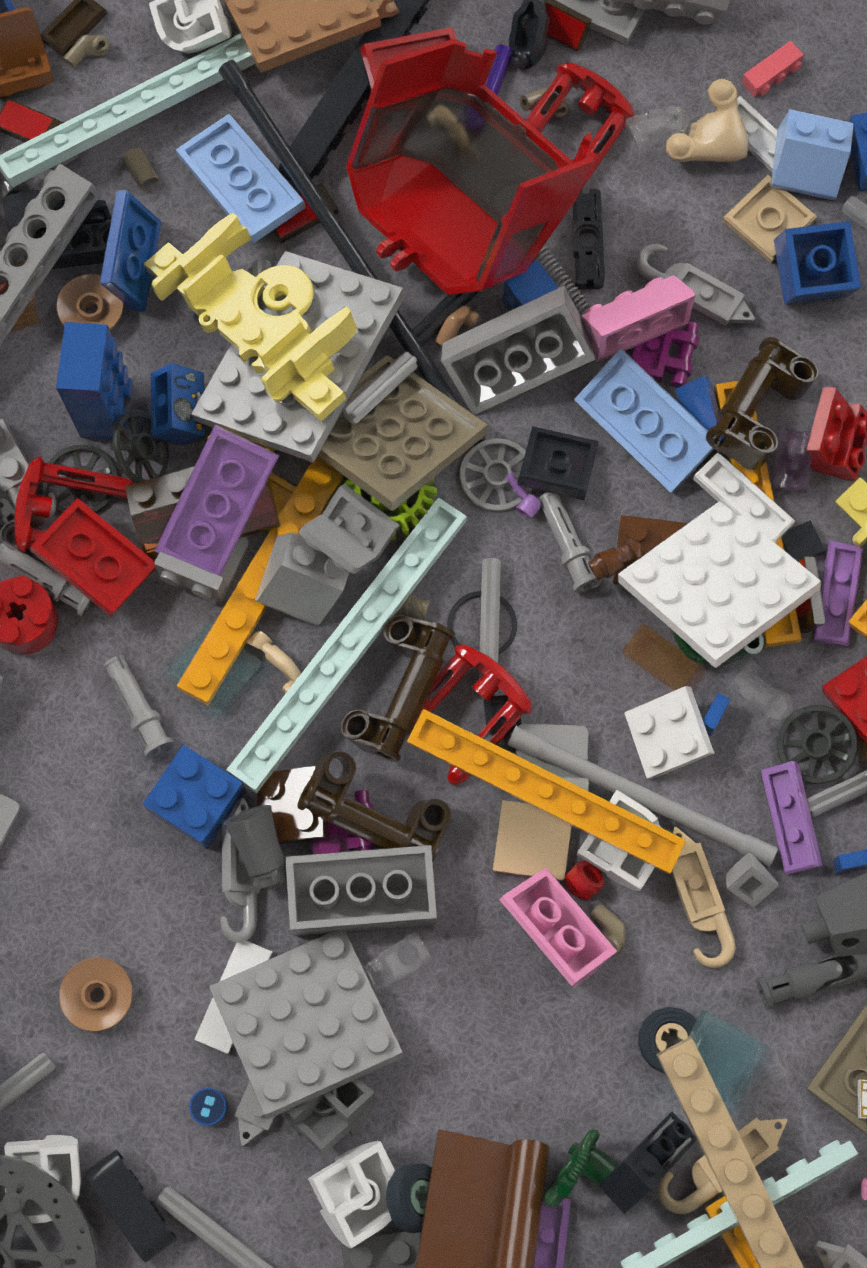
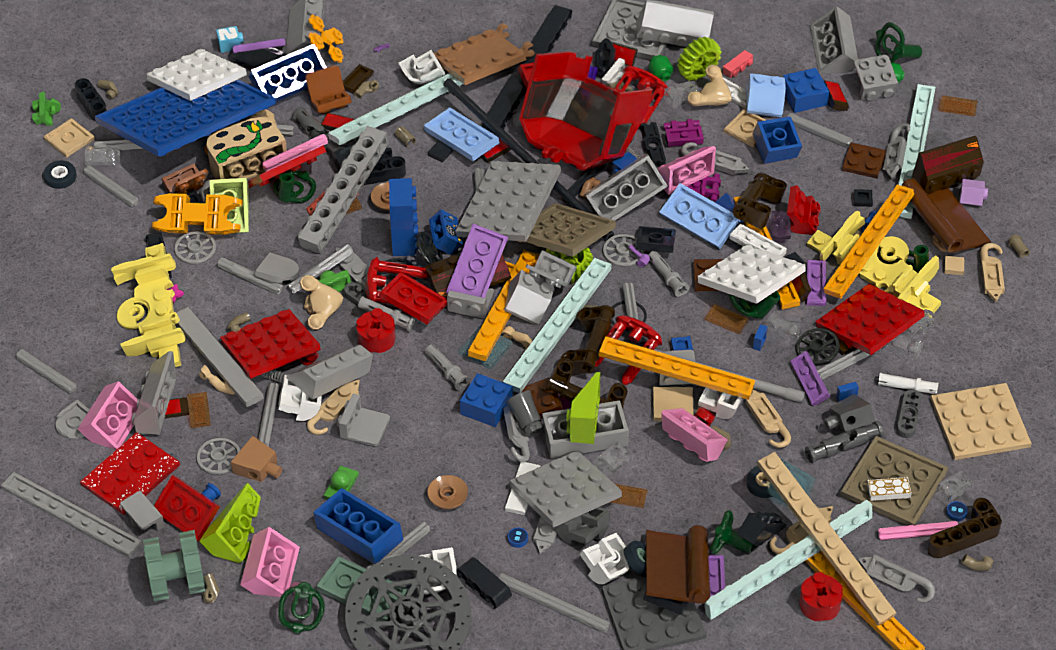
camera: 10 degrees left, 25 degrees down
(129, 245) = (408, 163): blue tile -> none
(198, 209) = (440, 151): none -> black tile
(229, 301) = (503, 195): light yellow piece -> none
(357, 889) = (584, 413): none -> lime slope
(379, 388) = (555, 211): light grey axle -> none
(421, 1037) = (631, 496): none -> clear orange tile
(539, 70) = (615, 72): none -> white tile
(569, 708) = (681, 343): none -> blue tile
(615, 560) = (692, 273): reddish brown arm -> none
(628, 65) = (661, 67): none -> green head
(647, 226) = (683, 132): none -> magenta plate
(669, 732) = (737, 346): white plate -> none
(700, 58) = (698, 57): none -> lime gear
(750, 880) = (794, 407): light grey slope -> none

